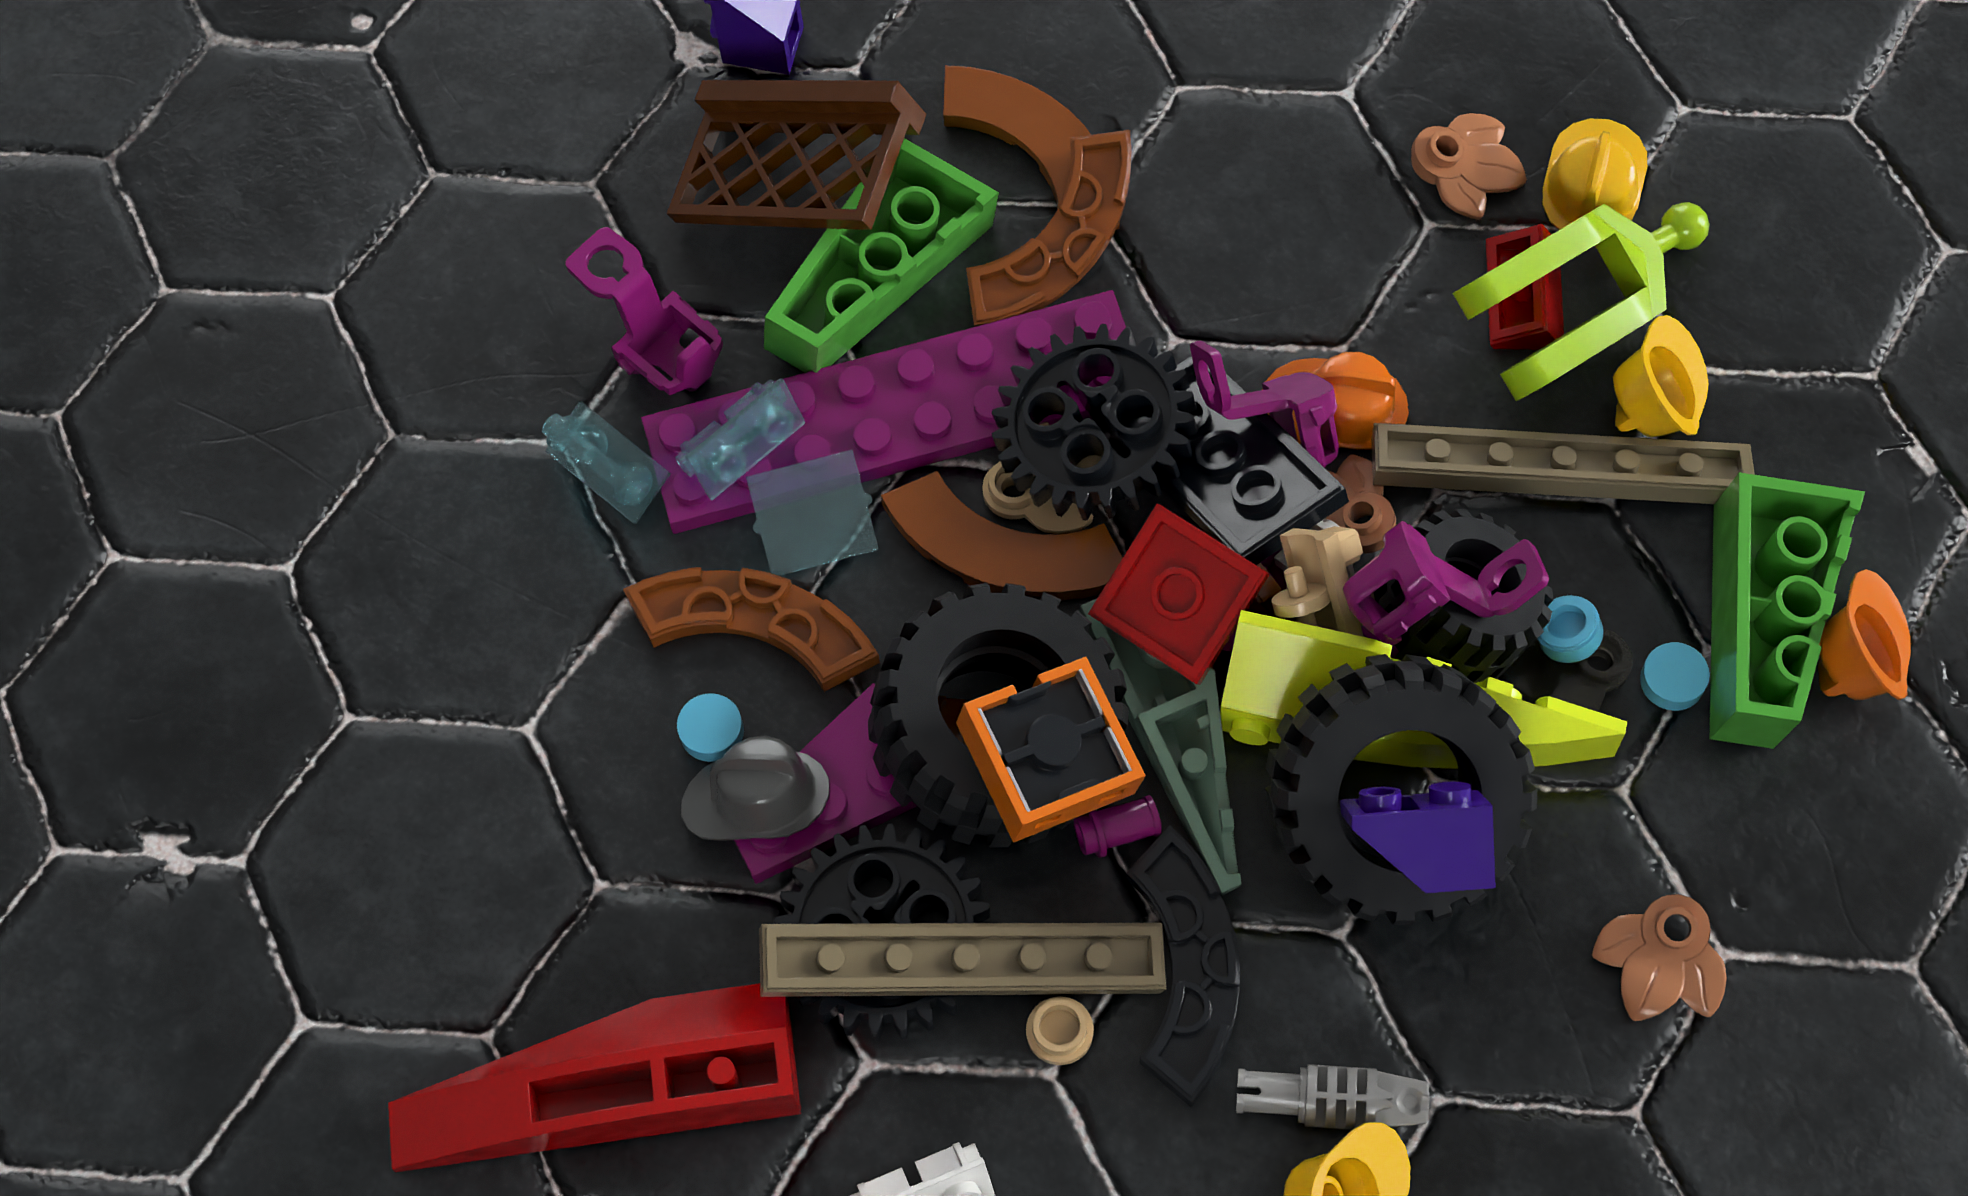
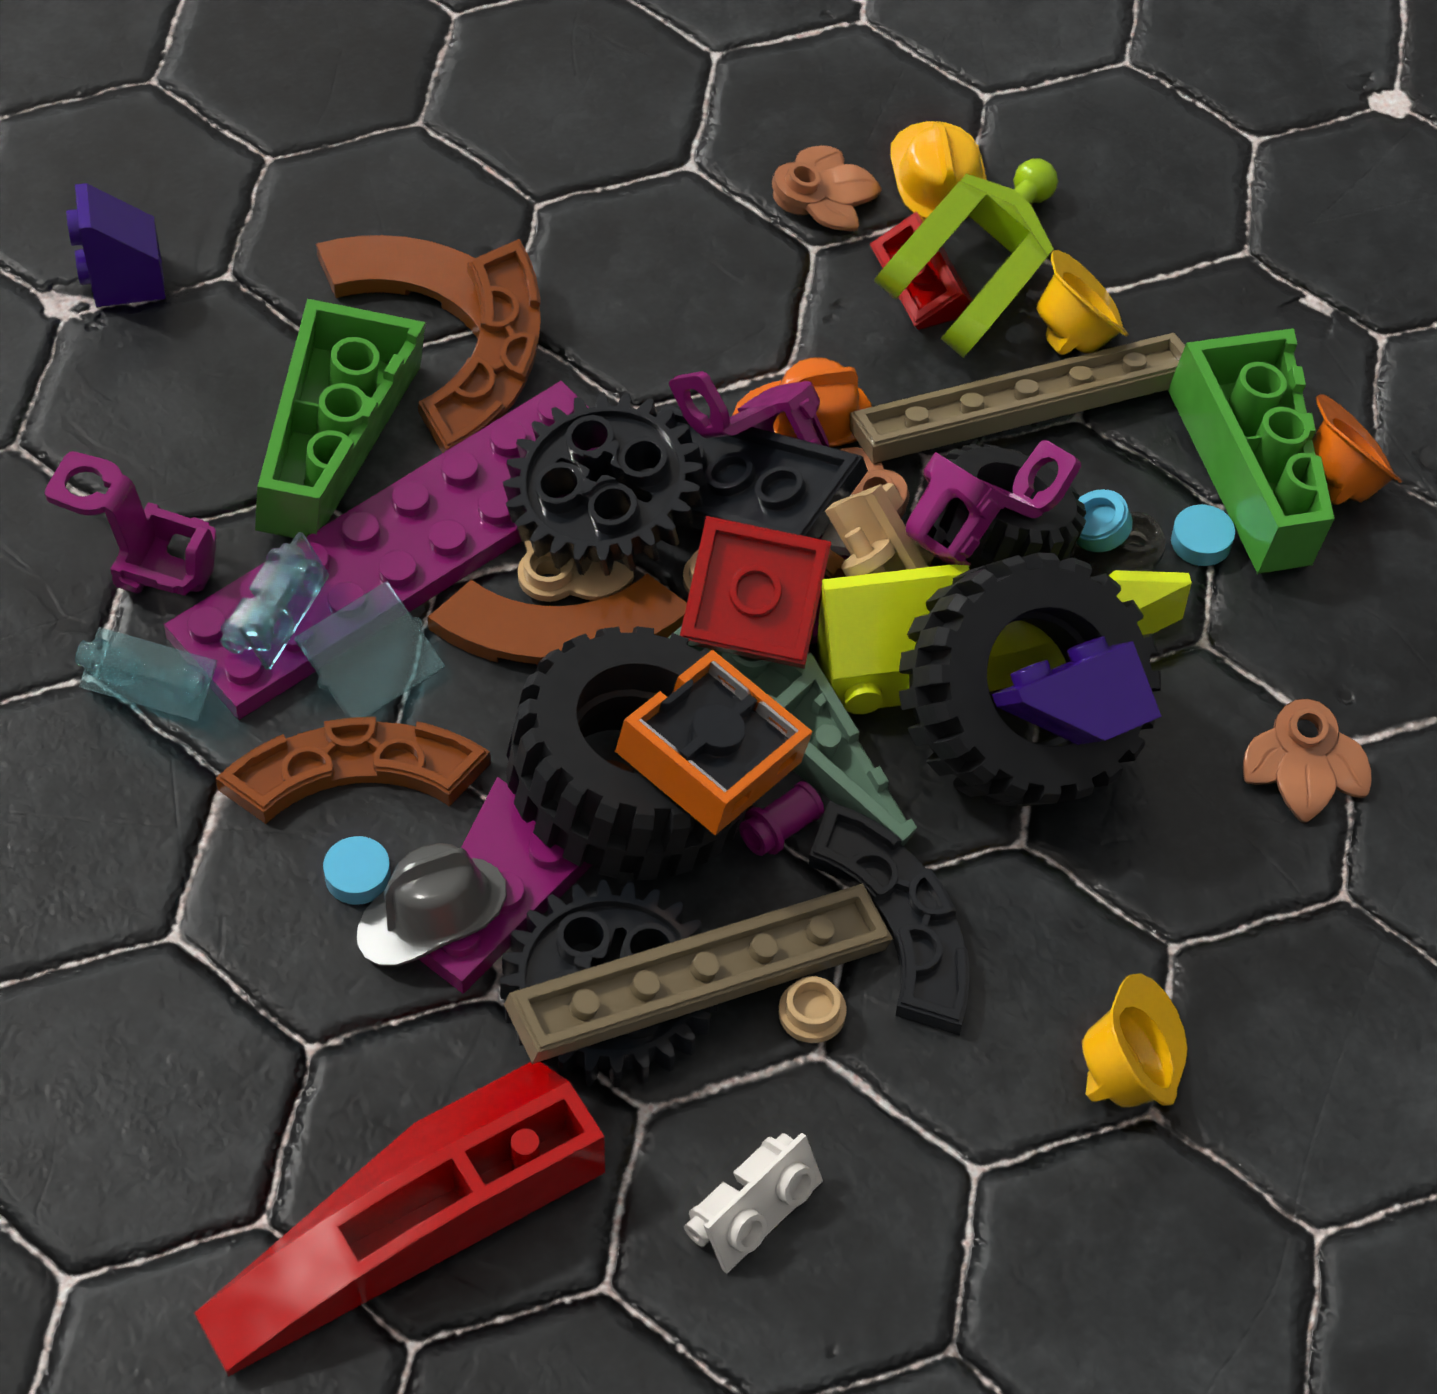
camera: 30 degrees left, 10 degrees down
(803, 112) = (210, 309): reddish brown fence -> none
(1336, 1096) = (1085, 971): light grey hinge -> none

